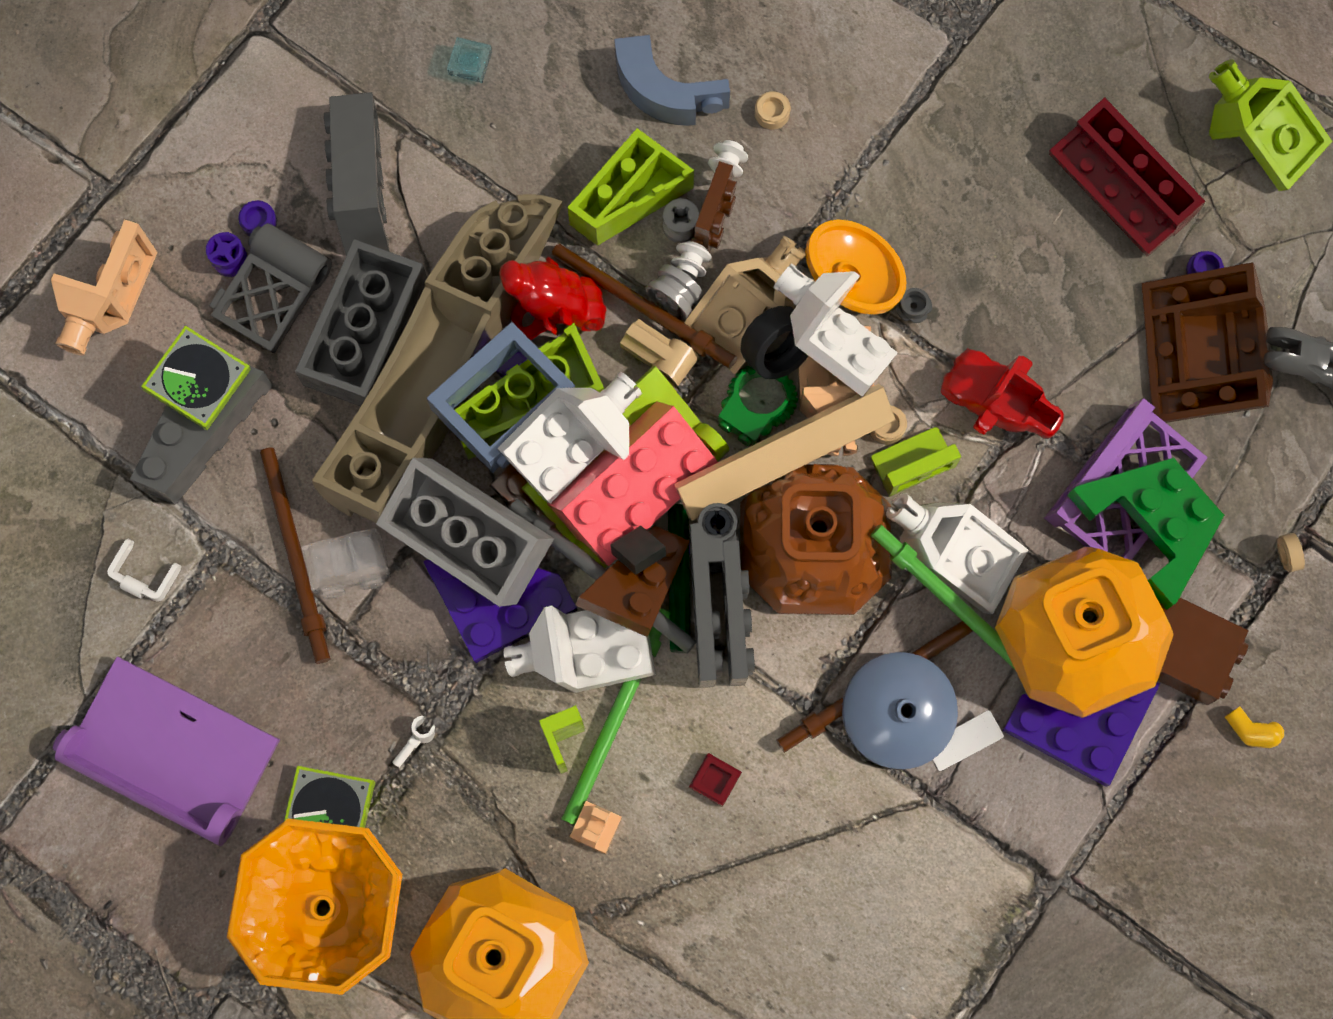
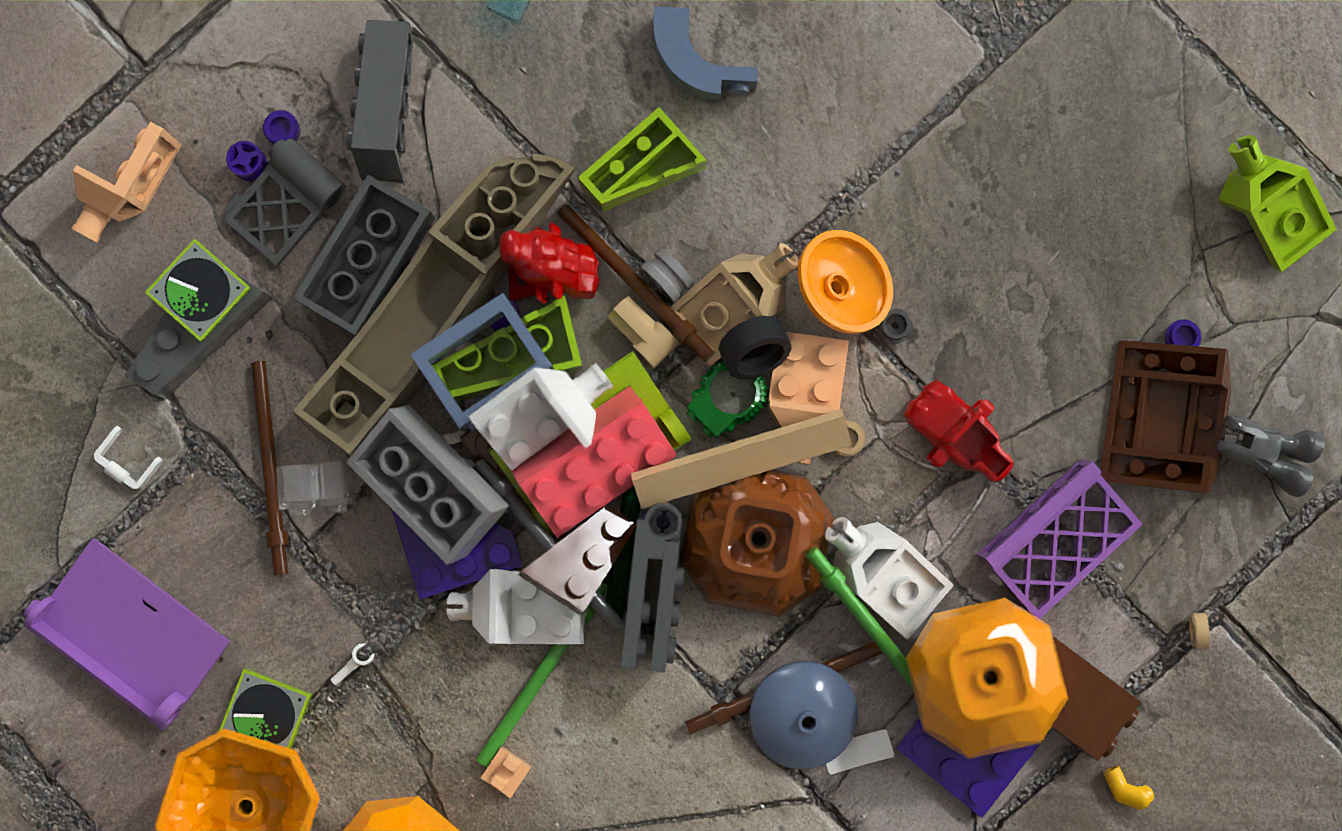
camera: 10 degrees right, 10 degrees up
(560, 727) = (485, 680): lime panel -> none
(638, 550) = (585, 531): pearl dark grey tile -> none
(680, 229) = (686, 211): light grey wheel -> none
(715, 779) = (622, 747): dark red tile -> none
(717, 205) = (726, 192): plate -> none
(772, 110) = (797, 101): tan tile -> none
(829, 333) = (807, 353): white plate -> none
(914, 461) = (864, 478): lime panel -> none
(1127, 177) = (1126, 234): dark red brick -> none
(1170, 512) = (1093, 575): green wing -> none

